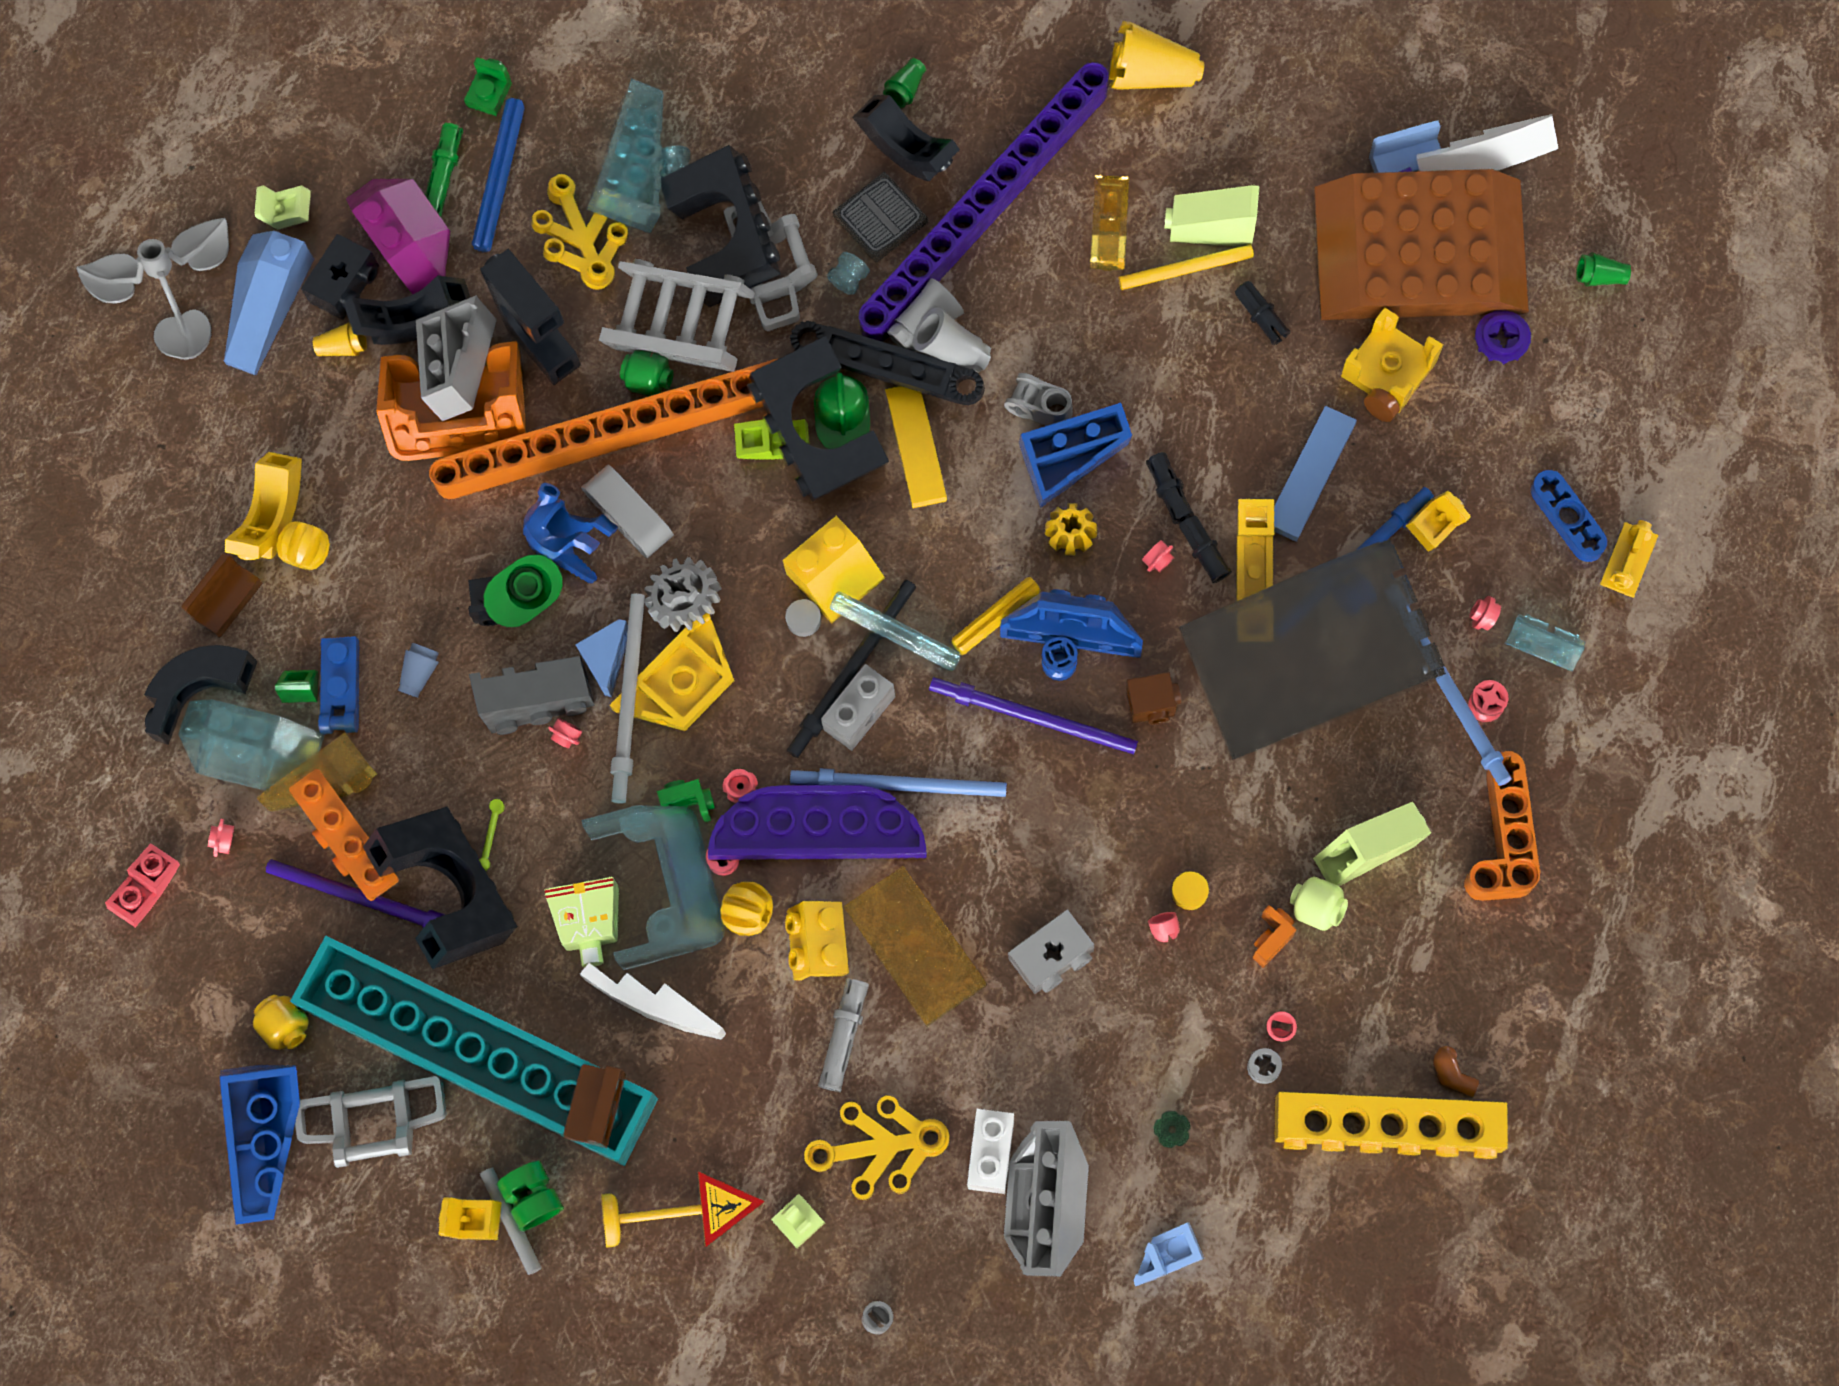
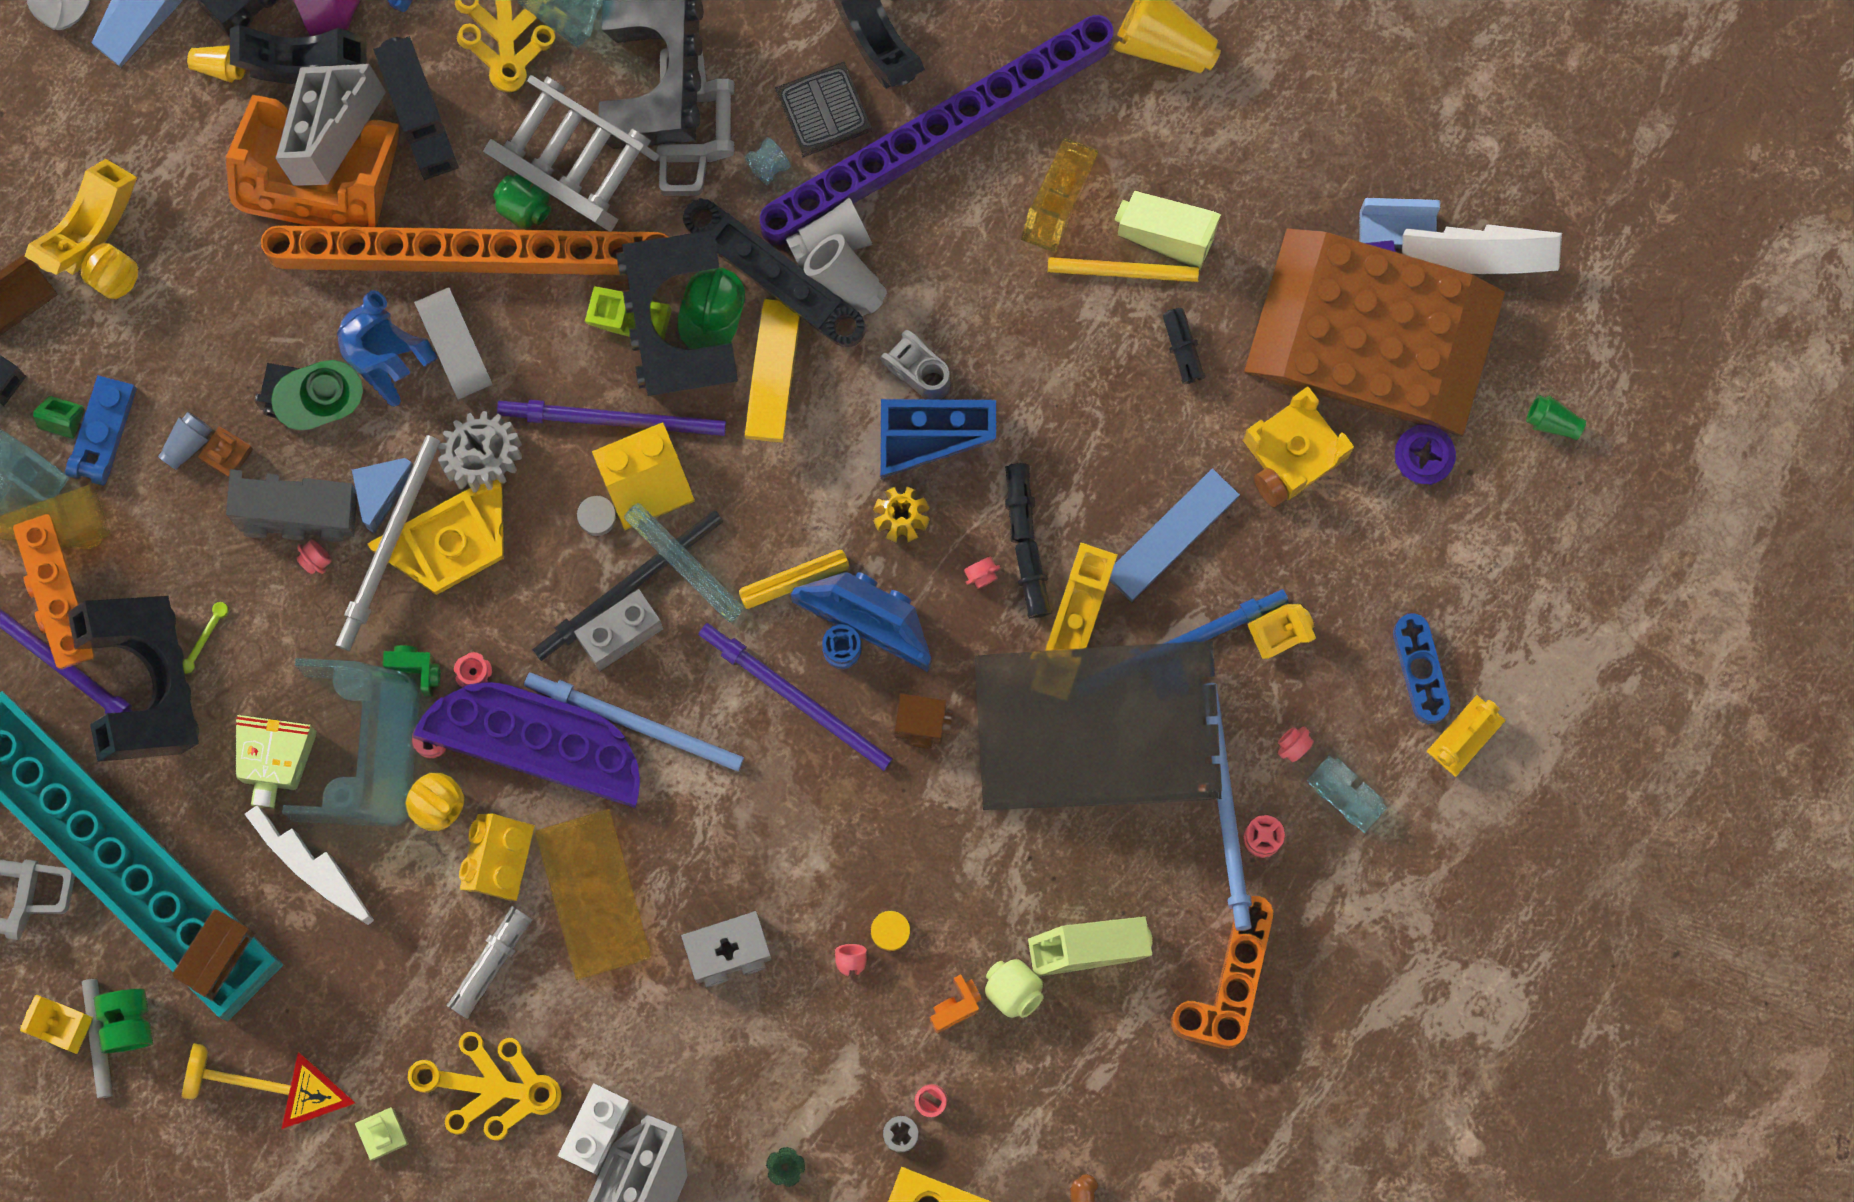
camera: 10 degrees right, 5 degrees up
(455, 669) = (225, 452): none -> dark orange tile
(720, 545) = (537, 412): none -> dark purple bar

